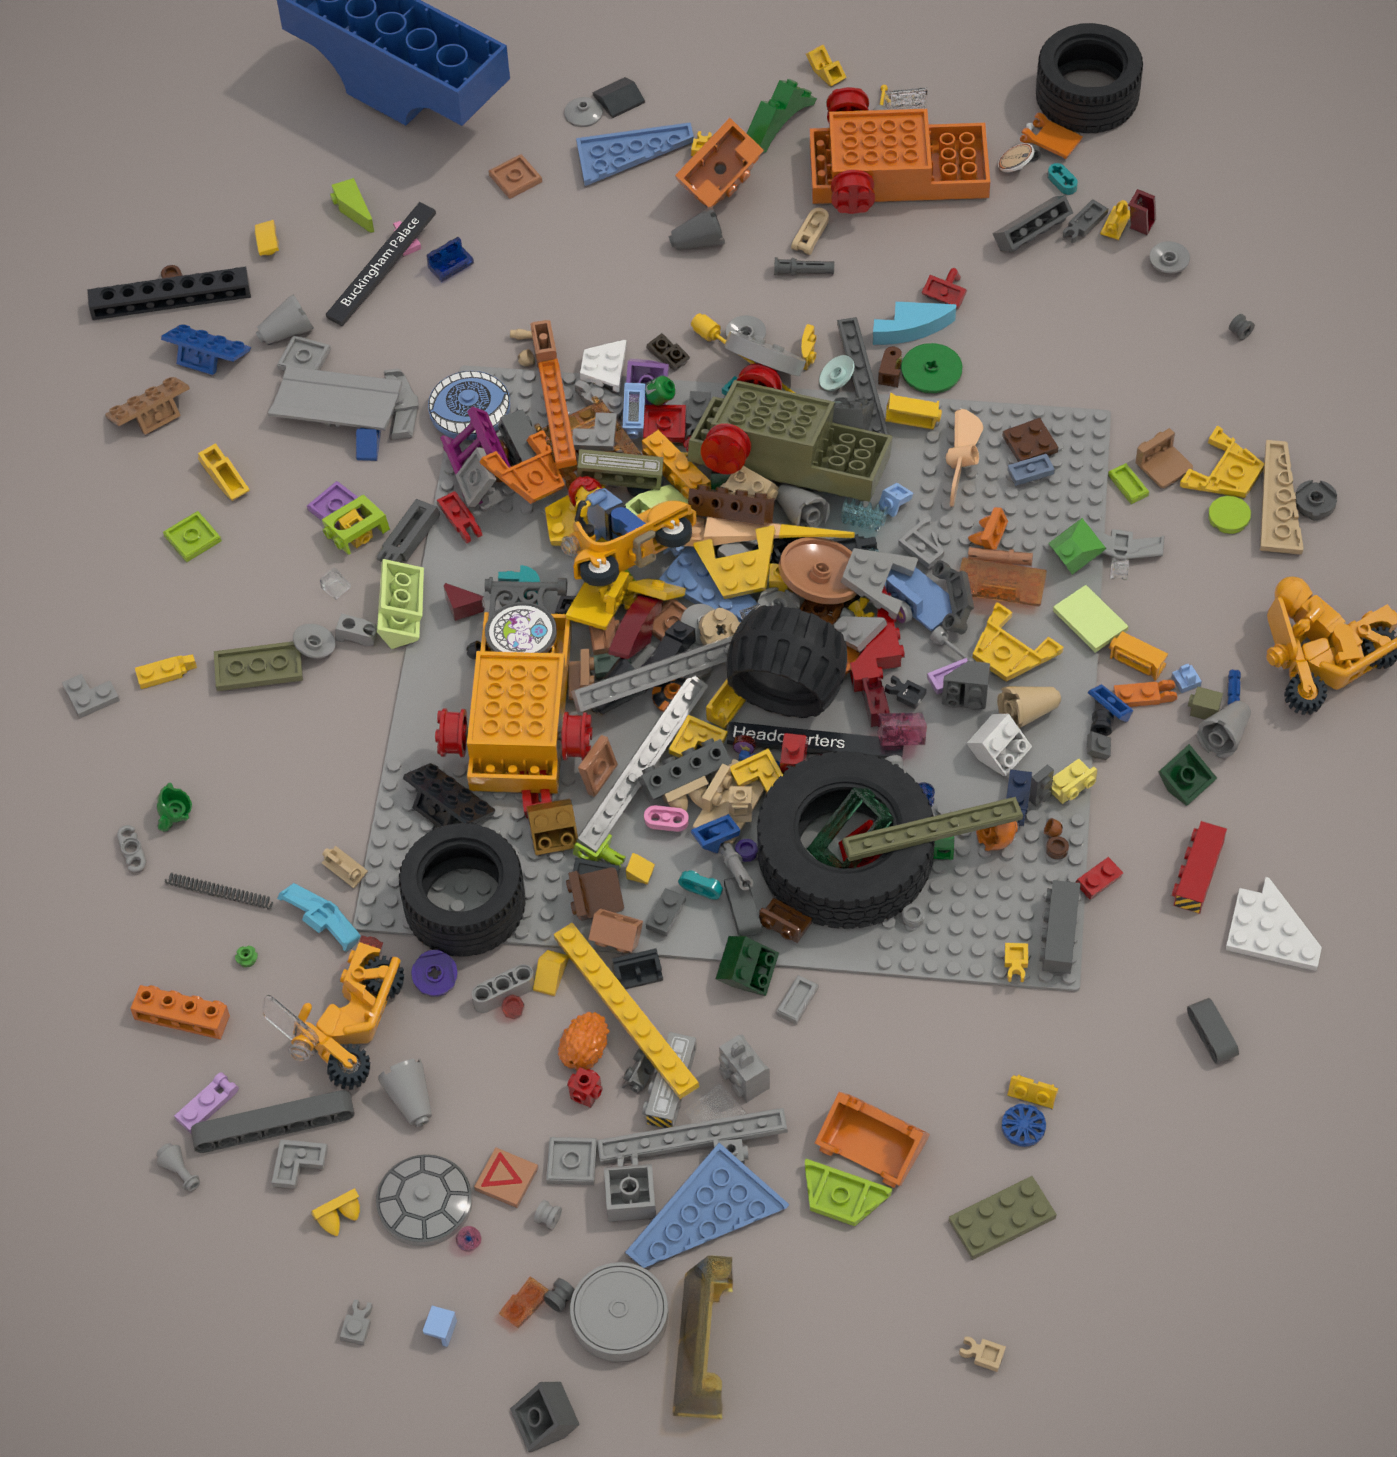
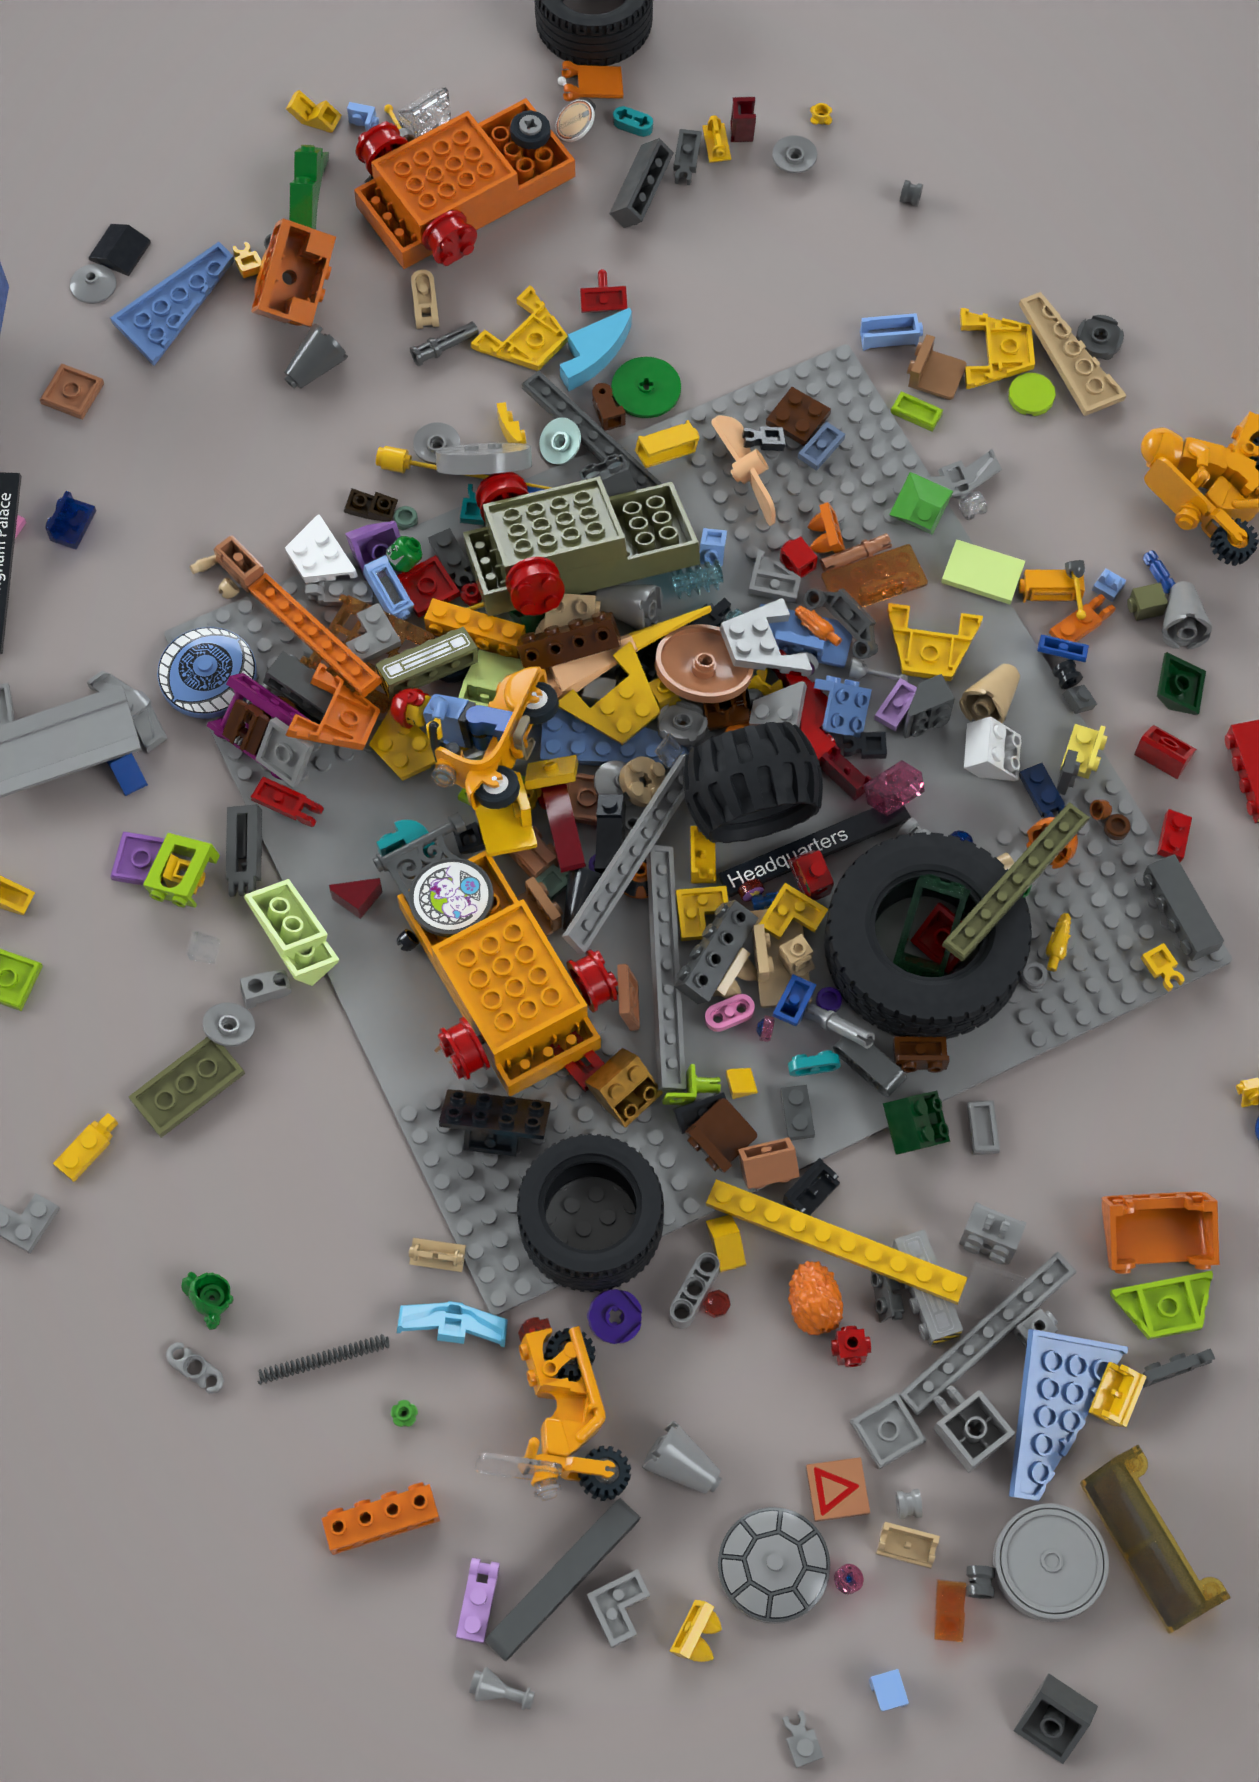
camera: 35 degrees left, 10 degrees up
(461, 446) = (235, 728): none -> reddish brown piece
(527, 1240) = (907, 1545): none -> tan hinge
(684, 842) = (765, 1028): none -> clear pink tile
(687, 372) = (405, 517): none -> sand green tile
(754, 1229) = (1117, 1394): none -> yellow hinge
(813, 1238) = (1178, 1365): none -> dark grey plate
(857, 80) = (362, 115): none -> light blue bracket
(868, 296) = (532, 341): none -> yellow wing
(906, 654) = (845, 706): none -> medium blue bracket
(930, 590) = (817, 625): none -> orange piece
(948, 901) = (1057, 945): none -> yellow piece
(952, 537) = (798, 557): none -> red brick
(968, 145) = (535, 136): none -> black wheel
(992, 444) = (767, 438): none -> black plate
(1138, 815) = (1164, 751): none -> red slope
(1148, 415) = (890, 331): none -> light blue window
(1158, 649) = (1075, 570): none -> hinge
(1214, 239) = (821, 114): none -> yellow plate

